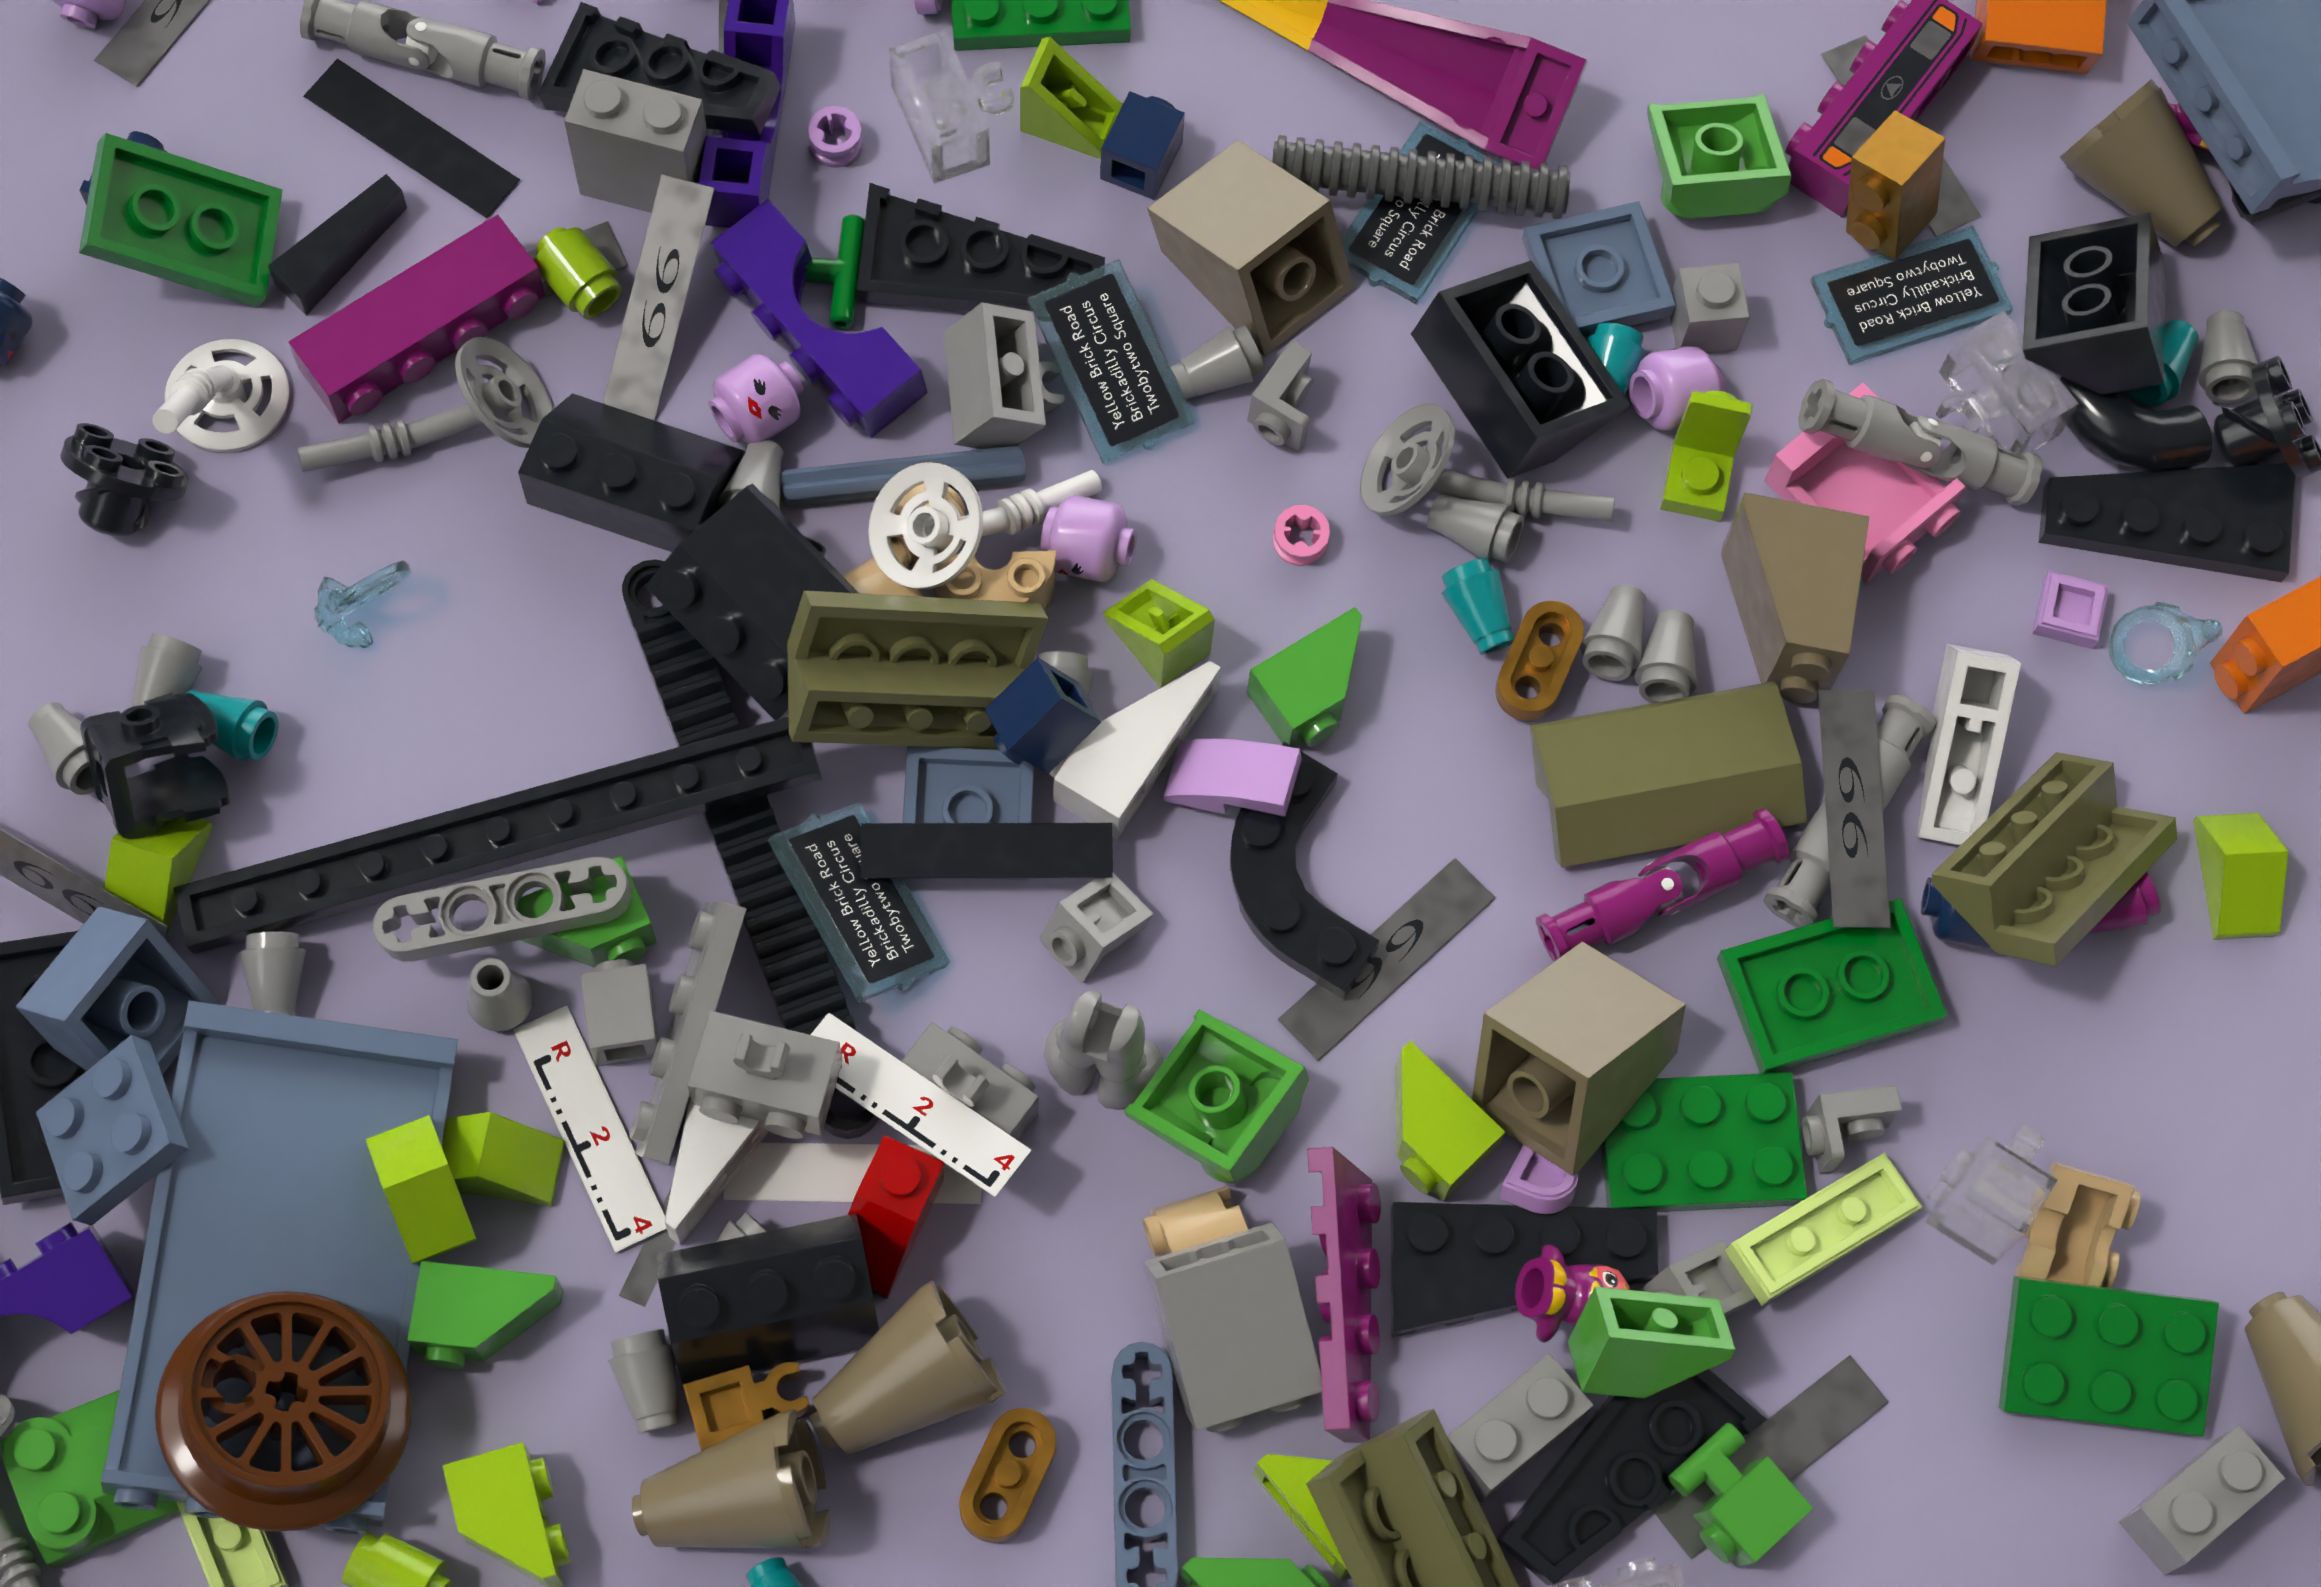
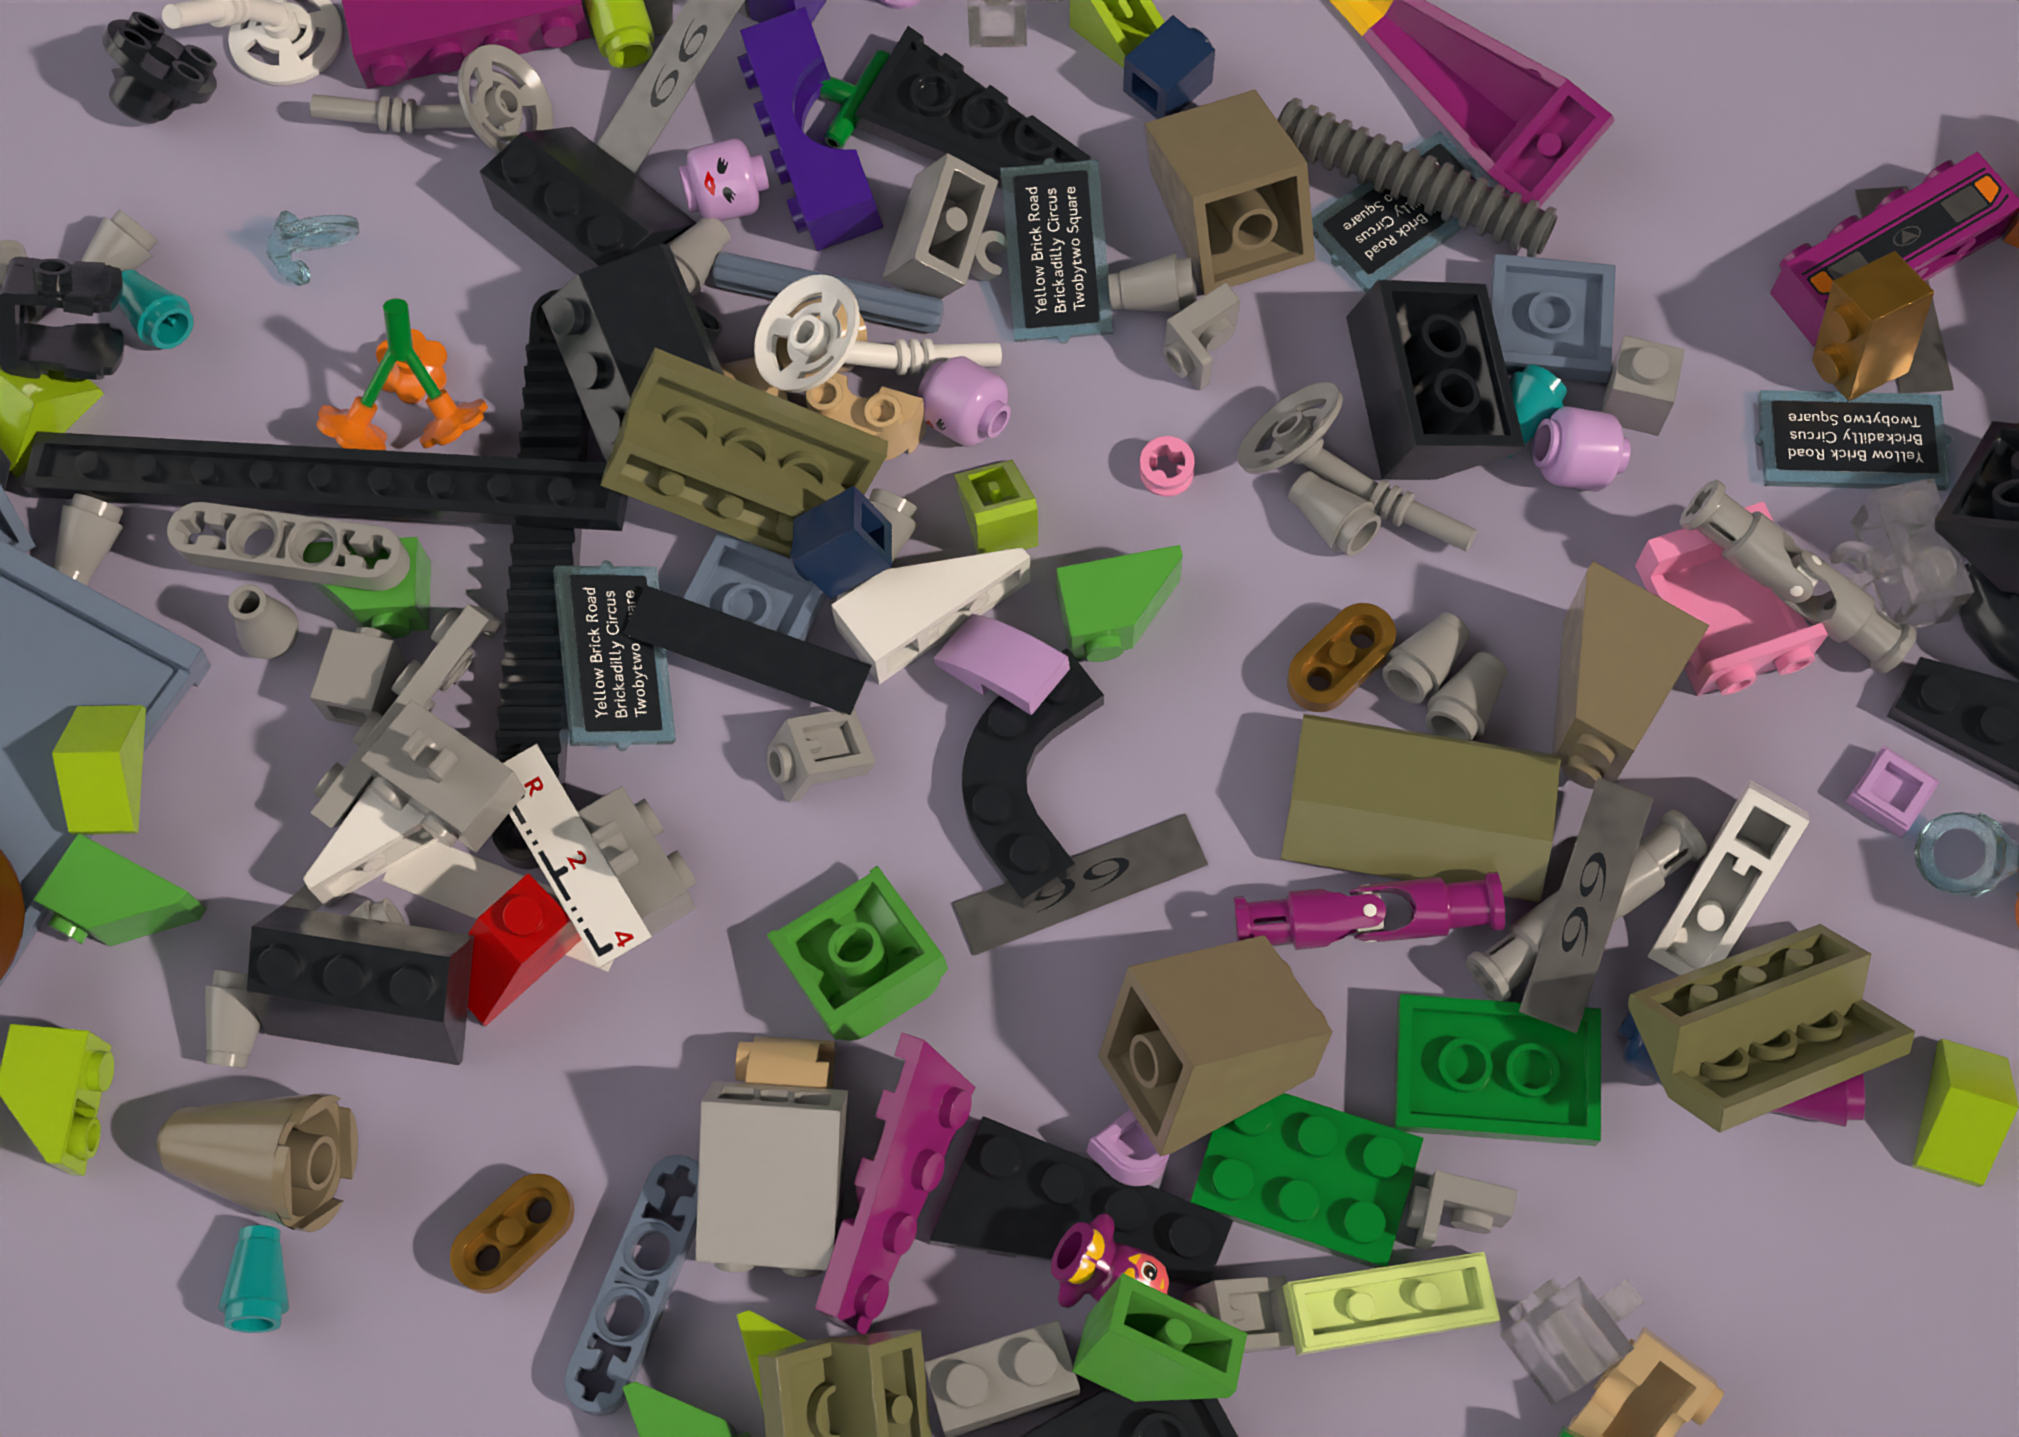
camera: 30 degrees right, 0 degrees up
(502, 1158) = (202, 771): lime slope -> none
(520, 695) = (412, 370): none -> orange plant
(591, 1128) = (294, 771): white sticker -> none
(733, 1402) = (302, 1067): pearl gold plate -> none
(907, 1377) = (461, 1104): dark tan cone -> none
(1102, 1040) = (762, 867): light grey piece -> none
(1438, 1126) = (1054, 1062): lime slope -> none
(1479, 603) = (1305, 584): teal cone -> none
(1704, 454) = (1580, 518): lime bracket -> none
(1718, 157) = (1710, 249): bright green slope -> none

